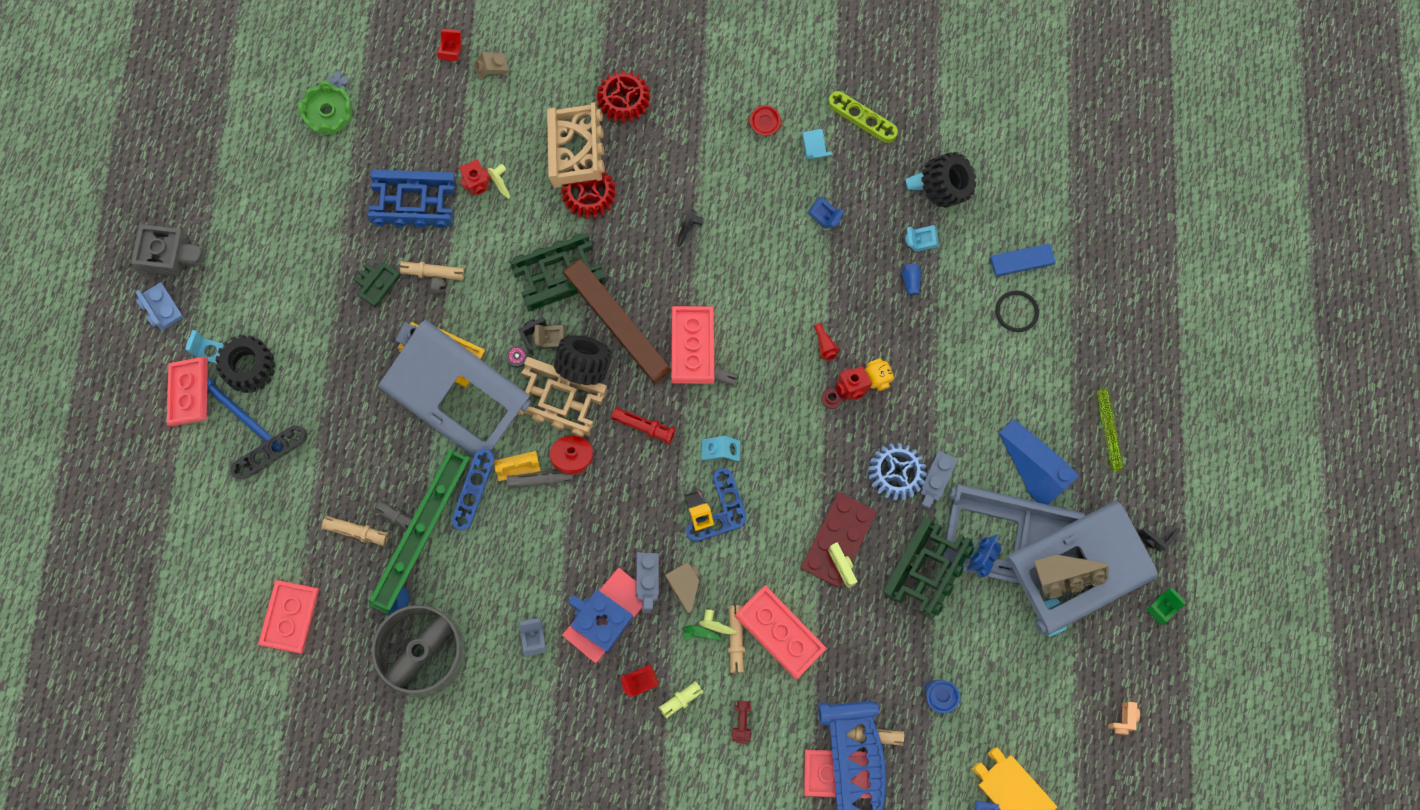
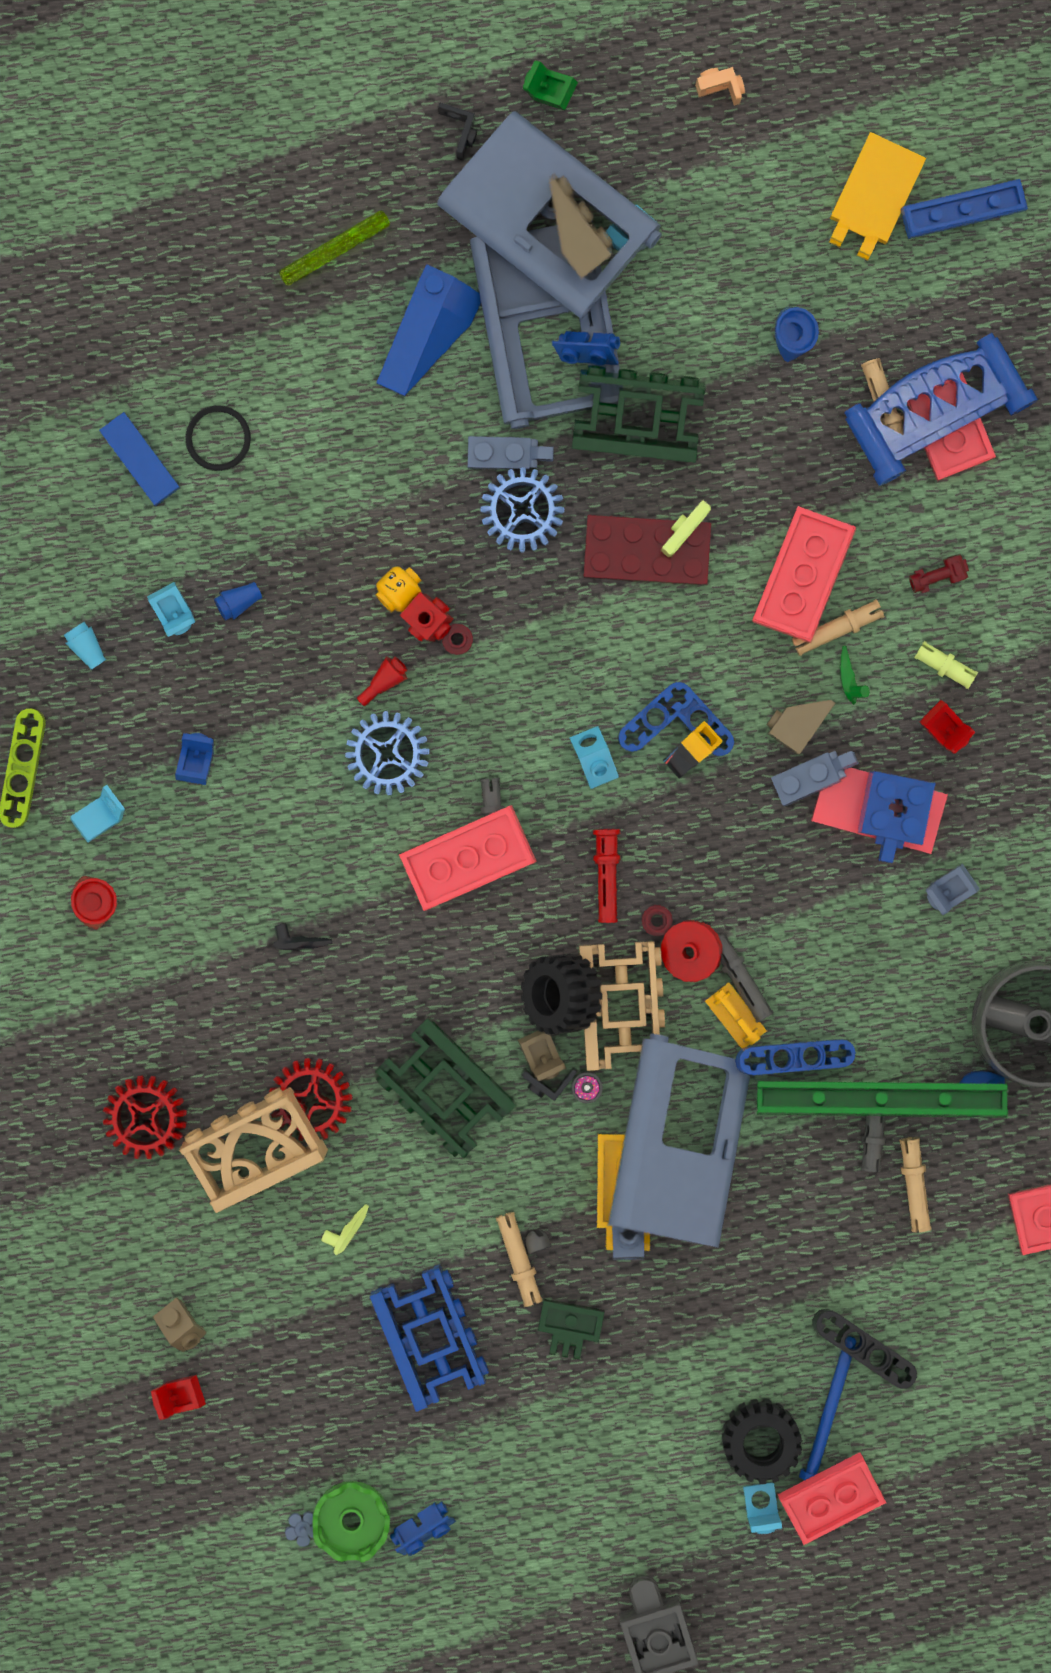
camera: 110 degrees left, 15 degrees up
(160, 306) = (732, 1599): medium blue bracket -> none
(298, 154) = (433, 1525): none -> blue hinge
(474, 178) = (356, 1274): red brick -> none
(600, 437) = (649, 913): none -> dark red plate
(616, 321) = (483, 974): reddish brown beam -> none
(715, 626) = (833, 663): yellowish green bar -> none
(792, 315) = (364, 738): none -> light blue gear
(948, 179) = (64, 589): black tyre -> none

